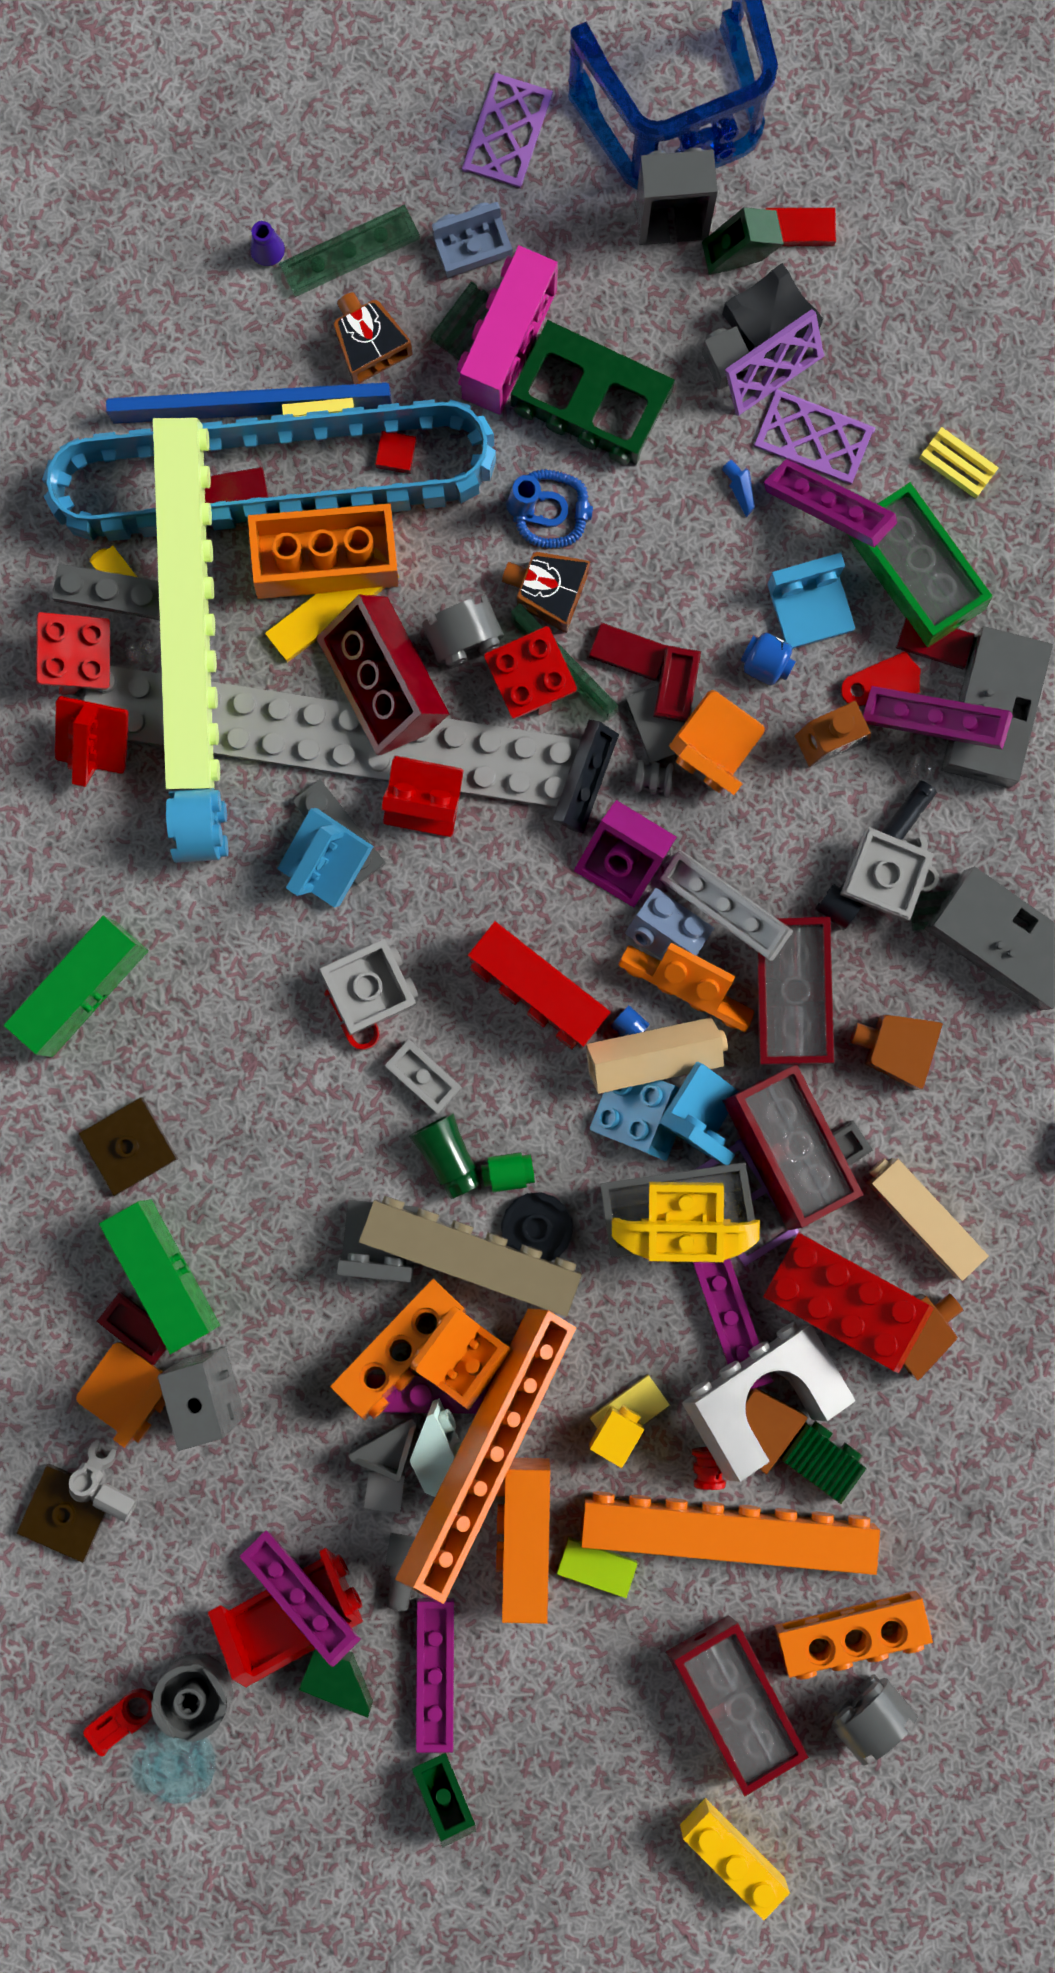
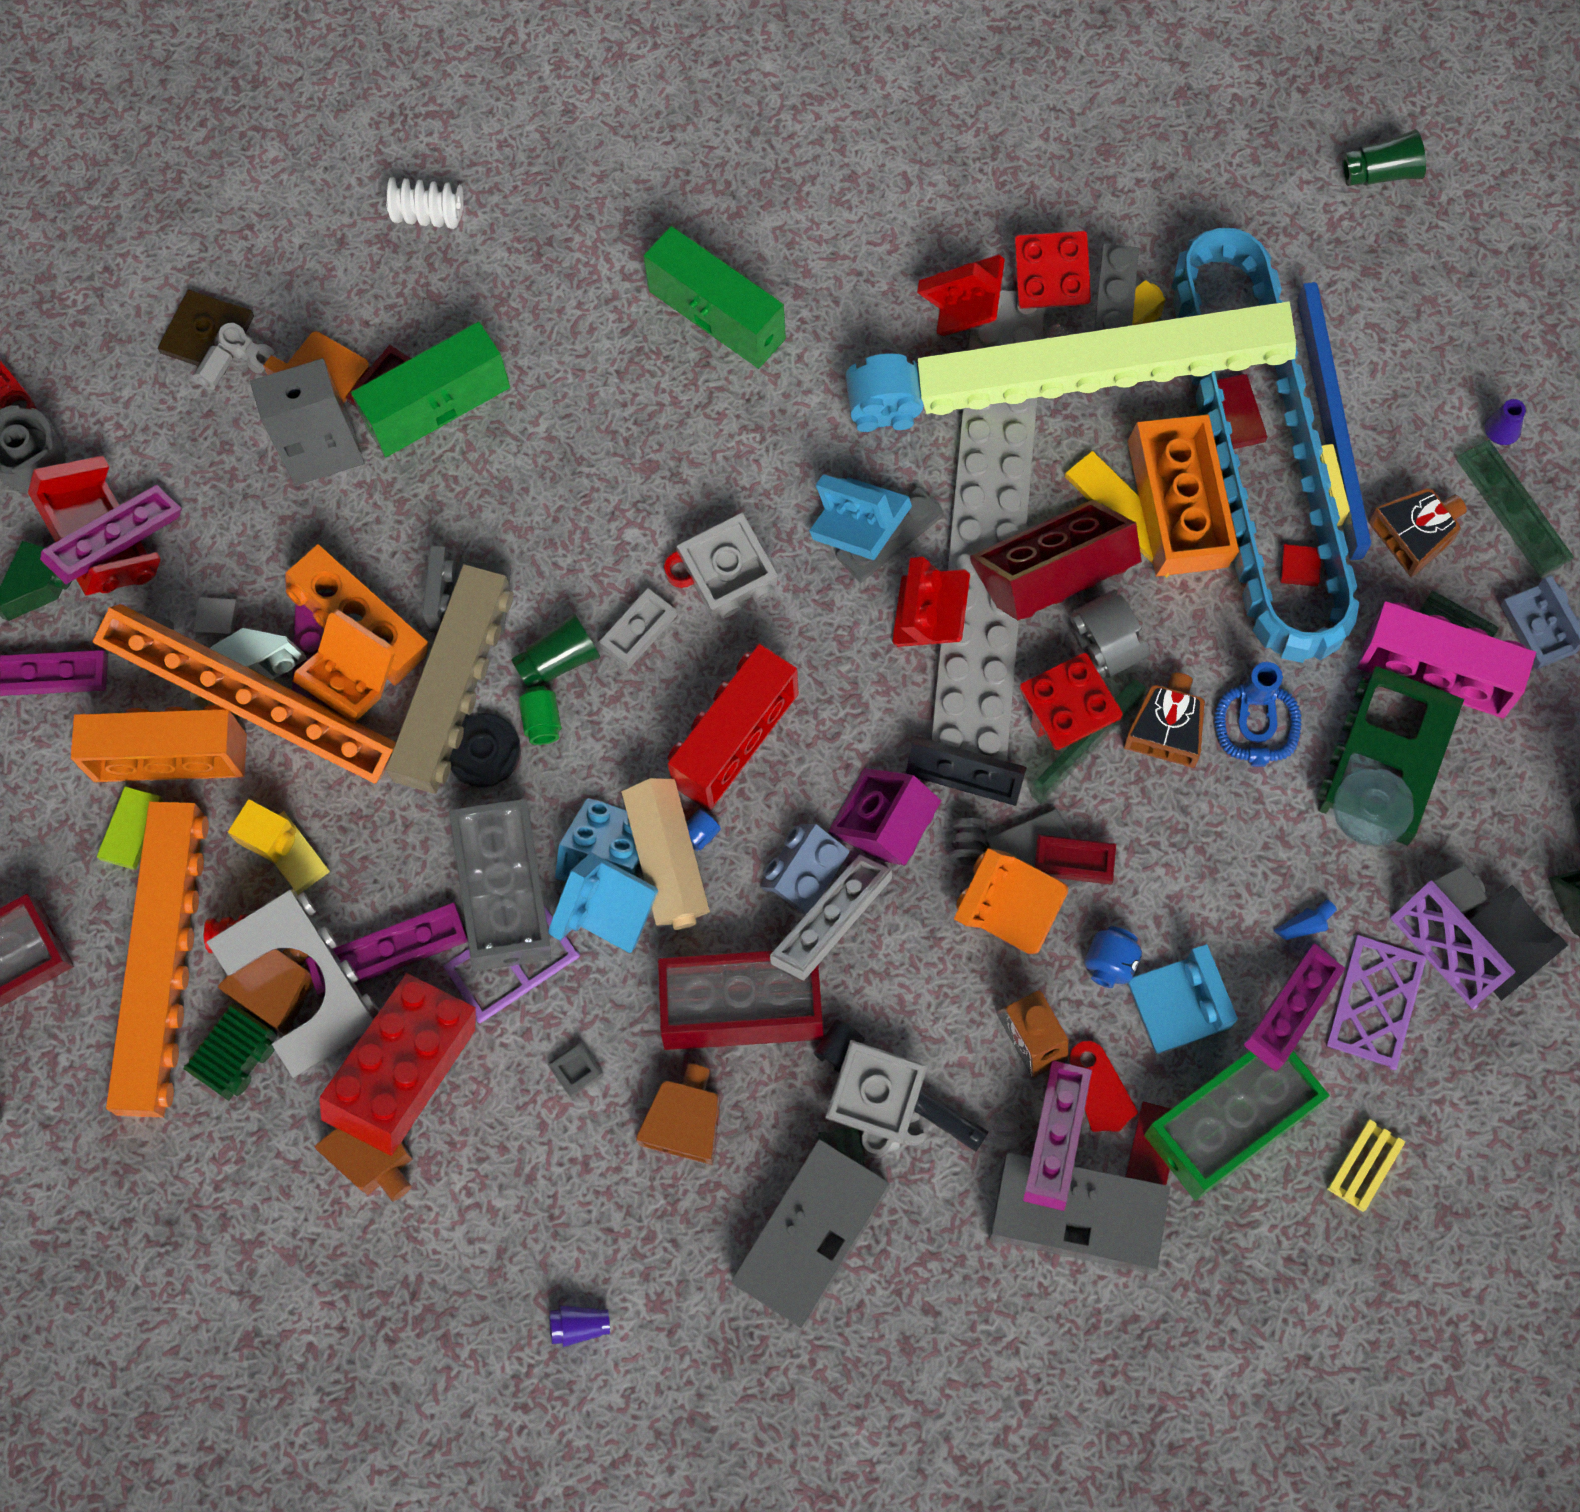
camera: 90 degrees right, 15 degrees down
(128, 1146) = (561, 362): dark brown plate -> none
(388, 1450) = (250, 609): dark grey slope -> none
(628, 651) = (1108, 808): dark red tile -> none
(648, 412) = (1373, 806): none -> clear light blue tile
(686, 1225) = (479, 881): yellow plate -> none
(690, 979) = (745, 887): orange bracket -> none
(792, 1148) = (569, 1001): brick -> none
(910, 1637) = (67, 1147): orange brick -> none
(926, 1218) = (494, 1155): tan brick -> none

